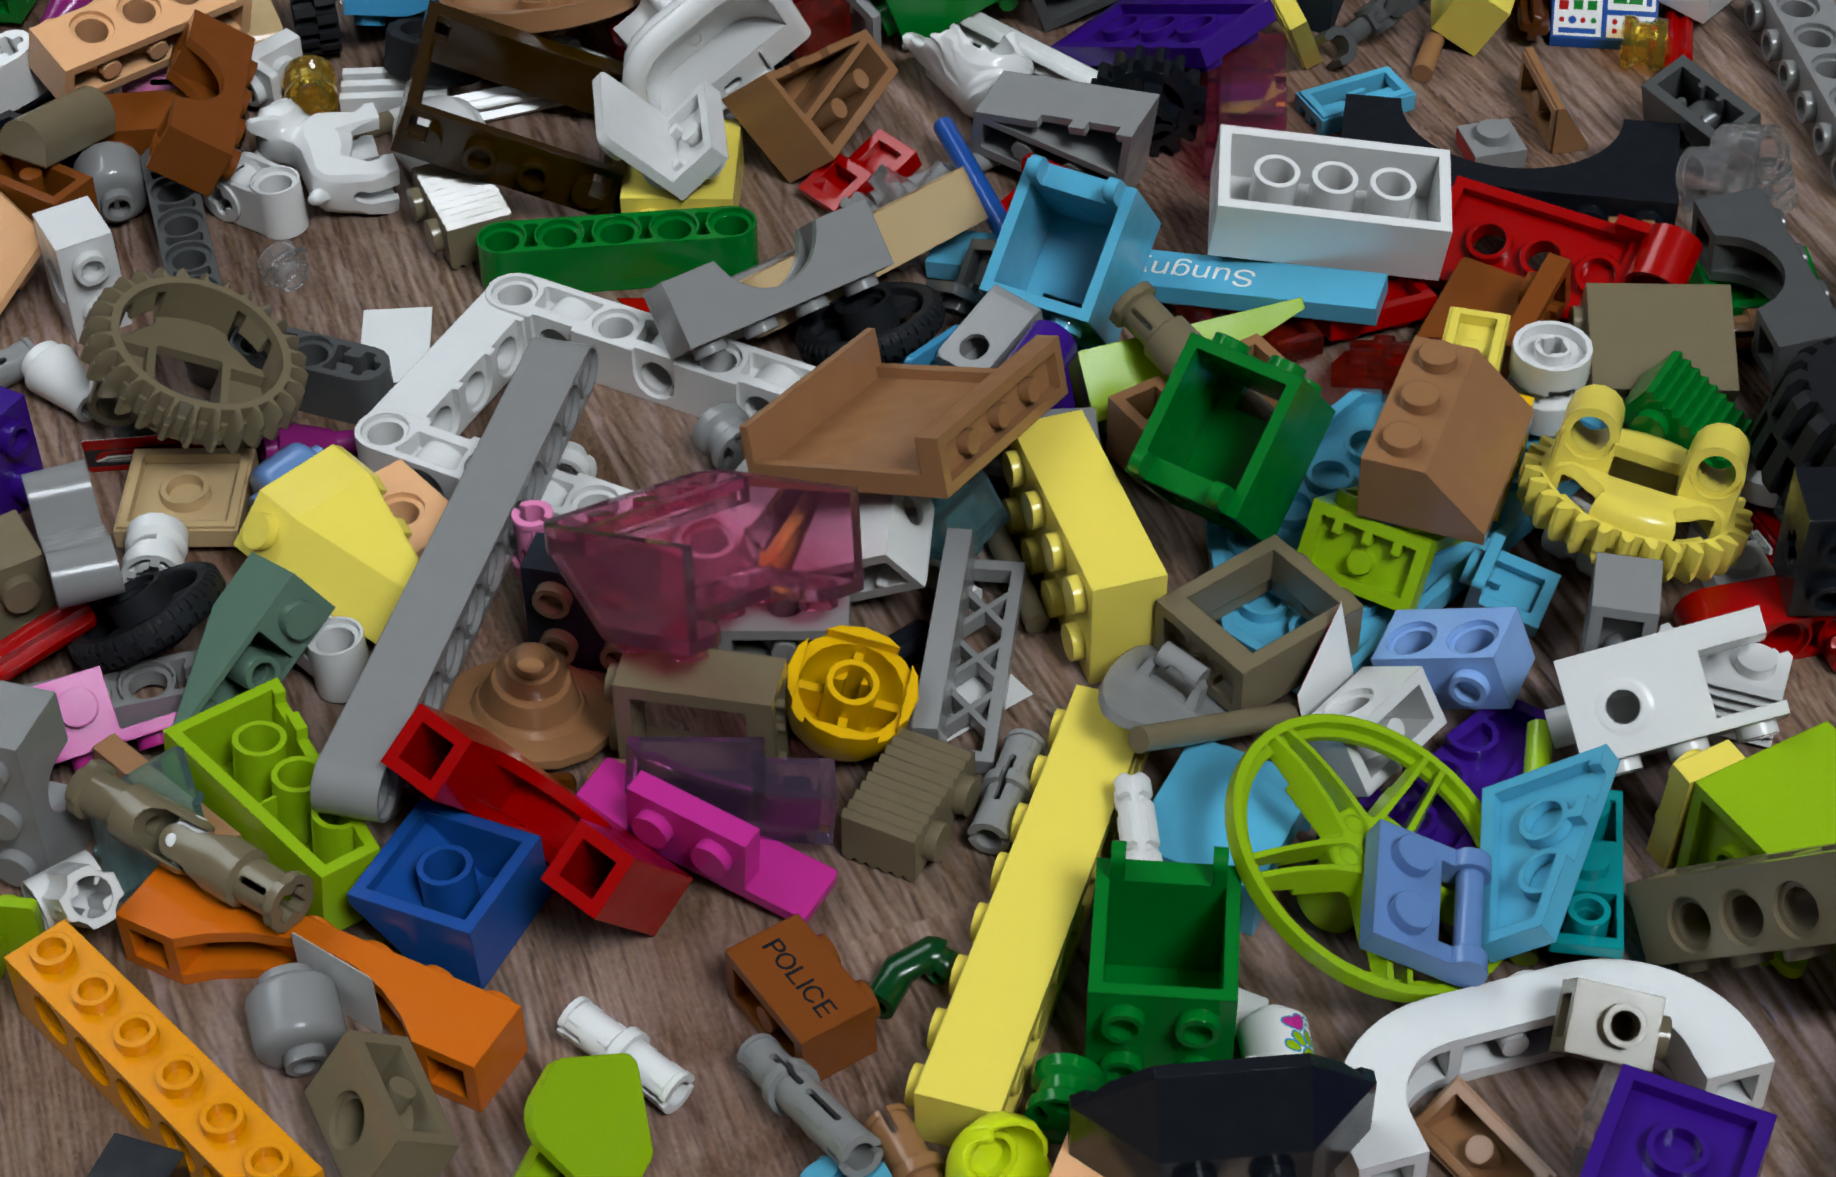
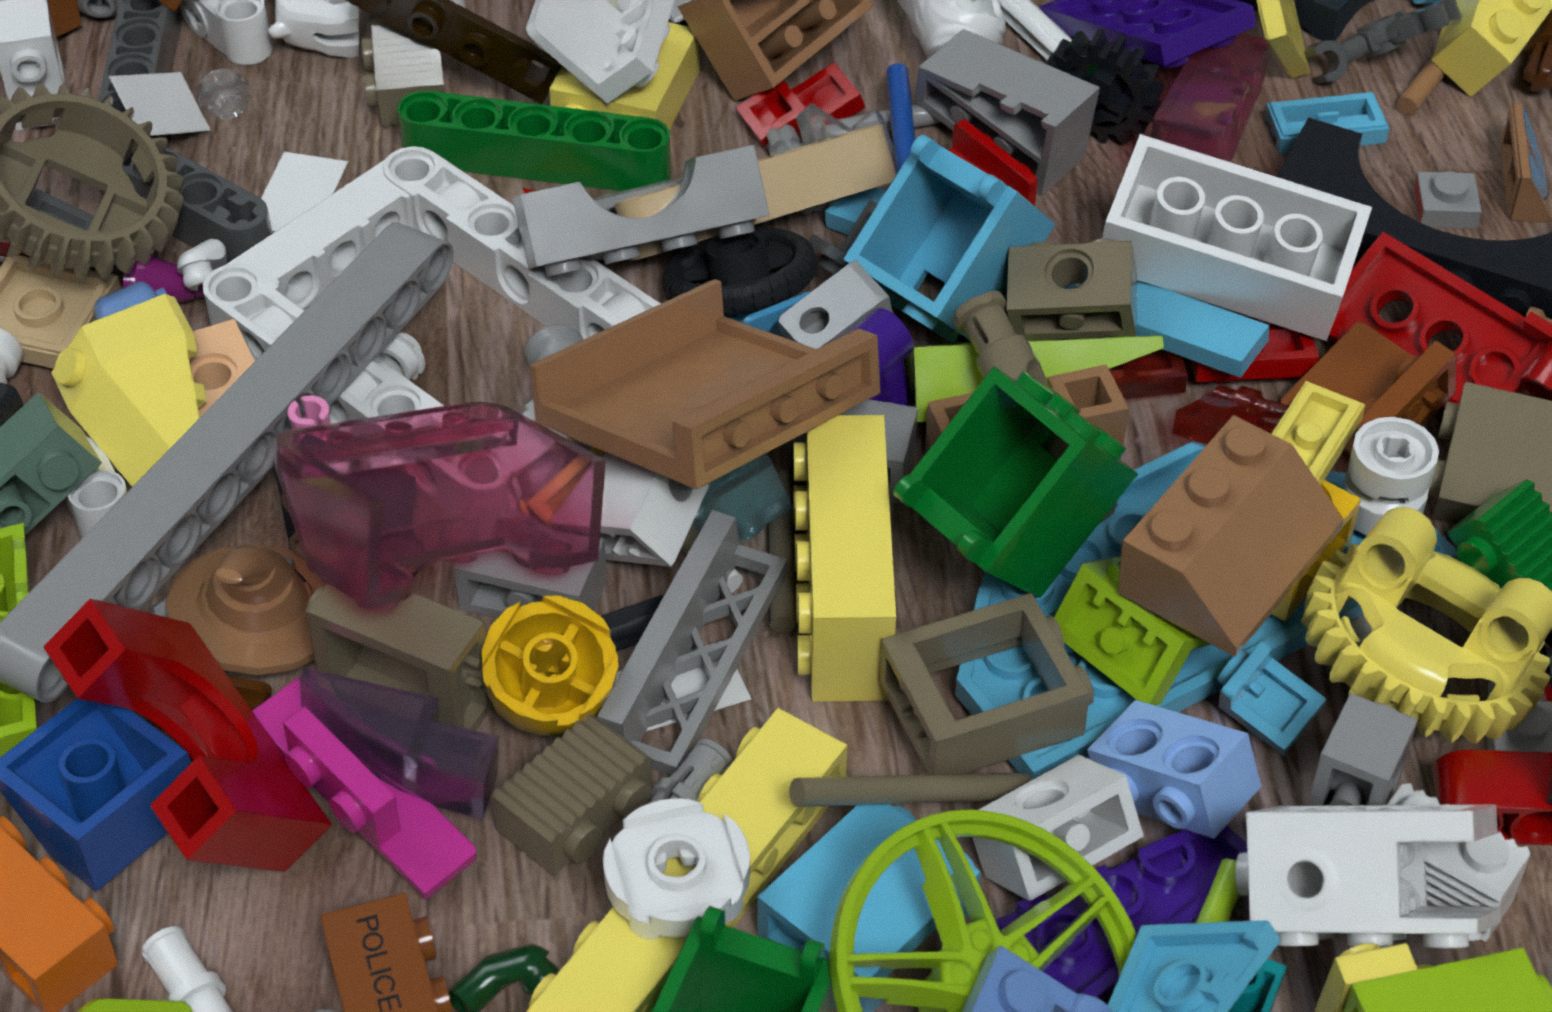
camera: 15 degrees right, 5 degrees up
(231, 267) = (162, 100): none -> white sticker
(340, 418) = (200, 262): none -> white arm
(1045, 863) = (667, 904): none -> white plate
(1137, 816) = (770, 881): white axle -> none
(1155, 687) = (847, 735): light grey shield -> none
(1231, 269) = (1097, 308): none -> dark tan brick
(1329, 668) = (1038, 750): white sticker -> none

